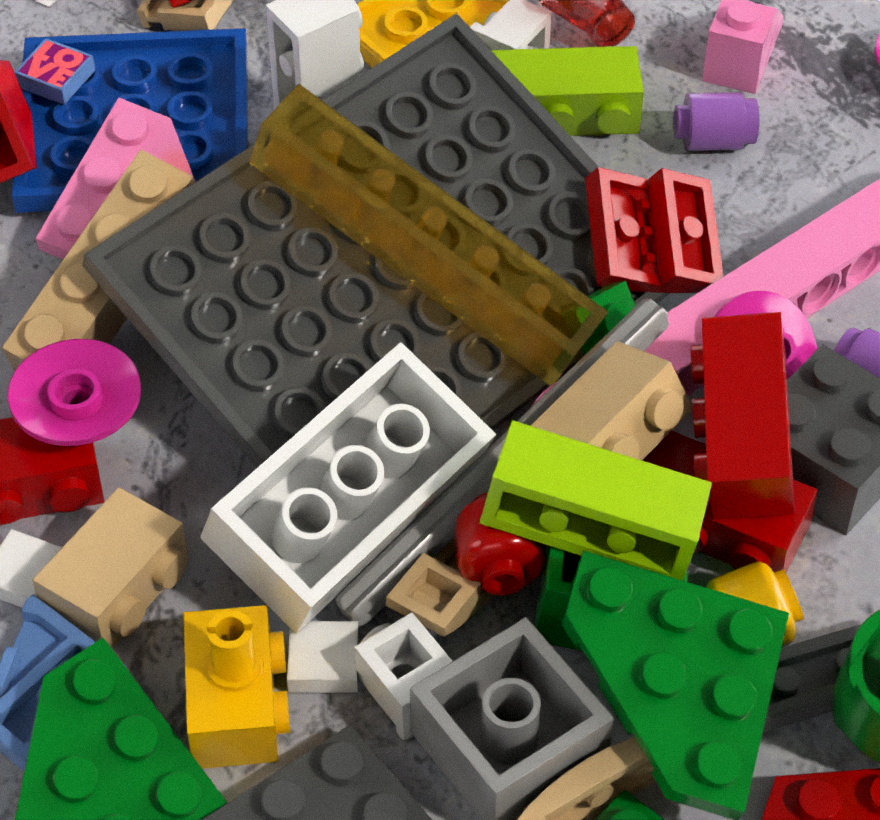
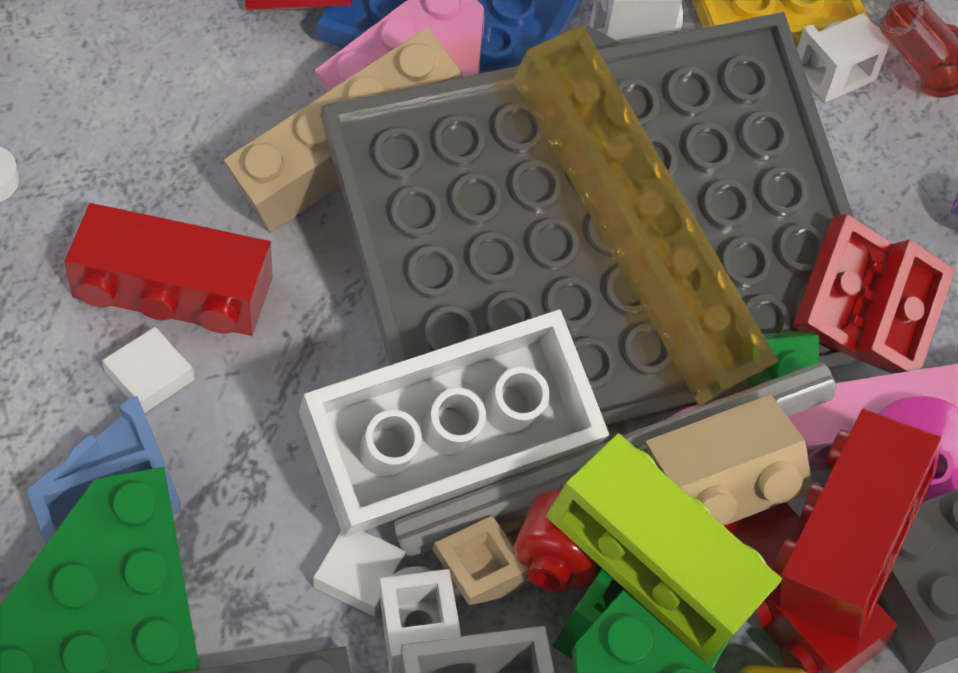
camera: 20 degrees right, 5 degrees up
(70, 372) = (258, 209): dark pink dish -> none
(114, 567) = (217, 404): tan brick -> none
(231, 686) = (260, 561): yellow brick -> none
(583, 86) = (877, 123): lime brick -> none

